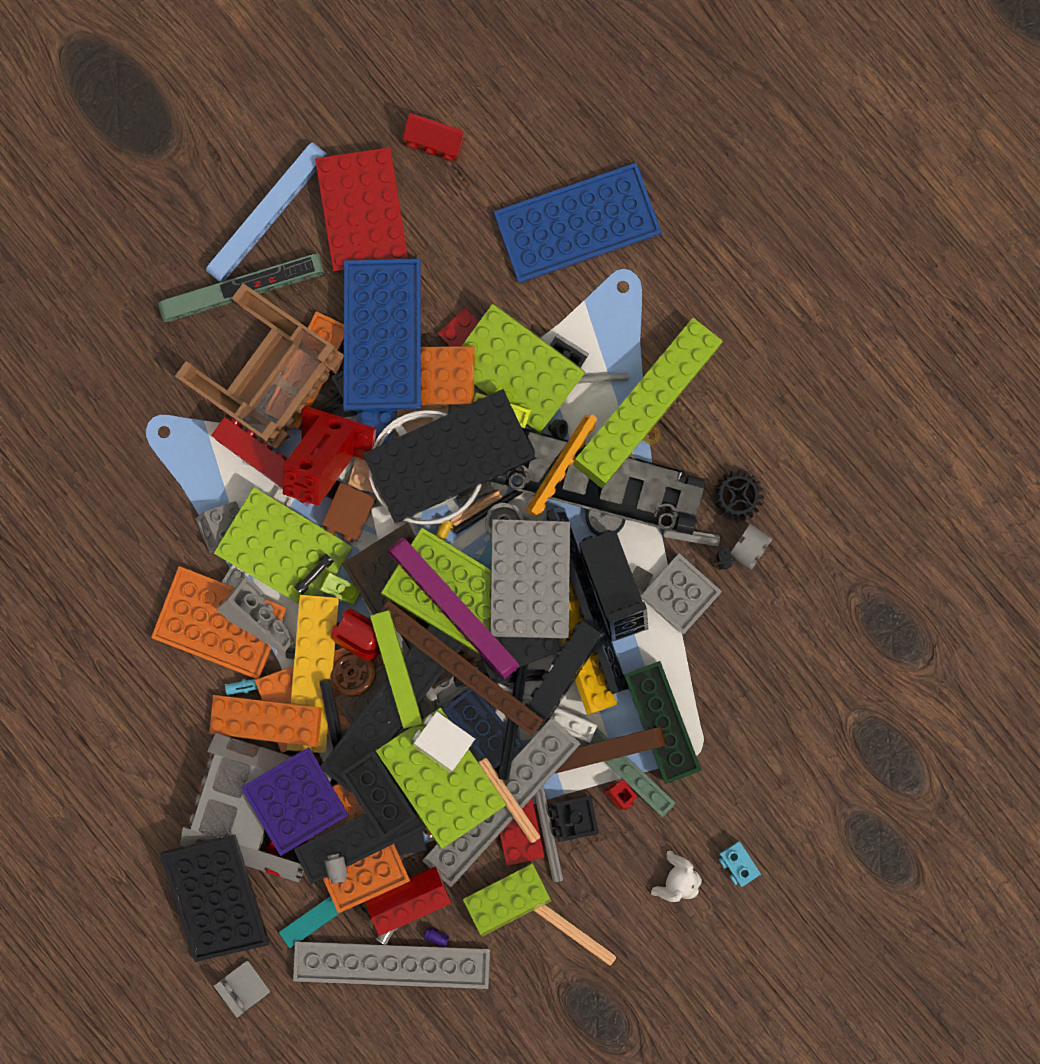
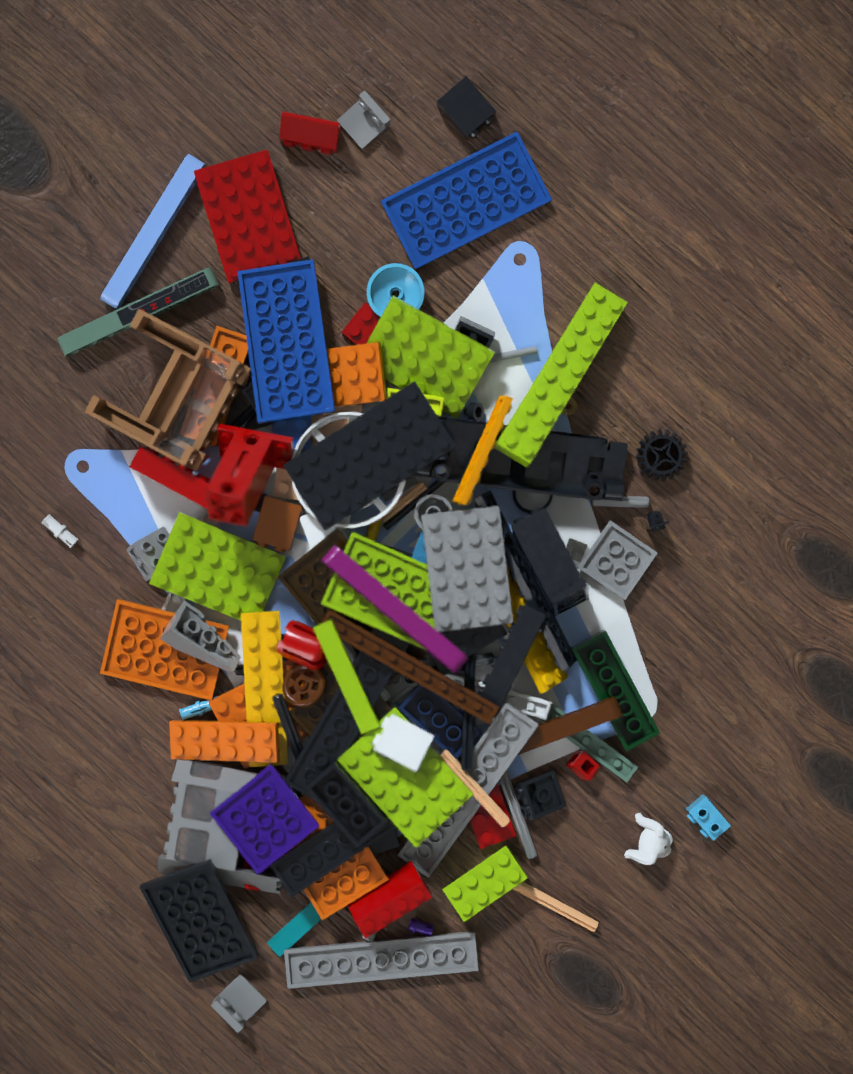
camera: 10 degrees left, 5 degrees up
(132, 491) = (60, 531): none -> white pin
(302, 586) = (242, 604): black bar -> none
(336, 868) = (314, 879): light grey brick -> none
(339, 588) = (278, 600): lime plate -> none
(488, 133) = (364, 120): none -> light grey bracket
(496, 288) = (394, 278): none -> medium azure dish
(589, 134) = (466, 108): none -> black brick
(750, 546) = (681, 504): light grey brick -> none

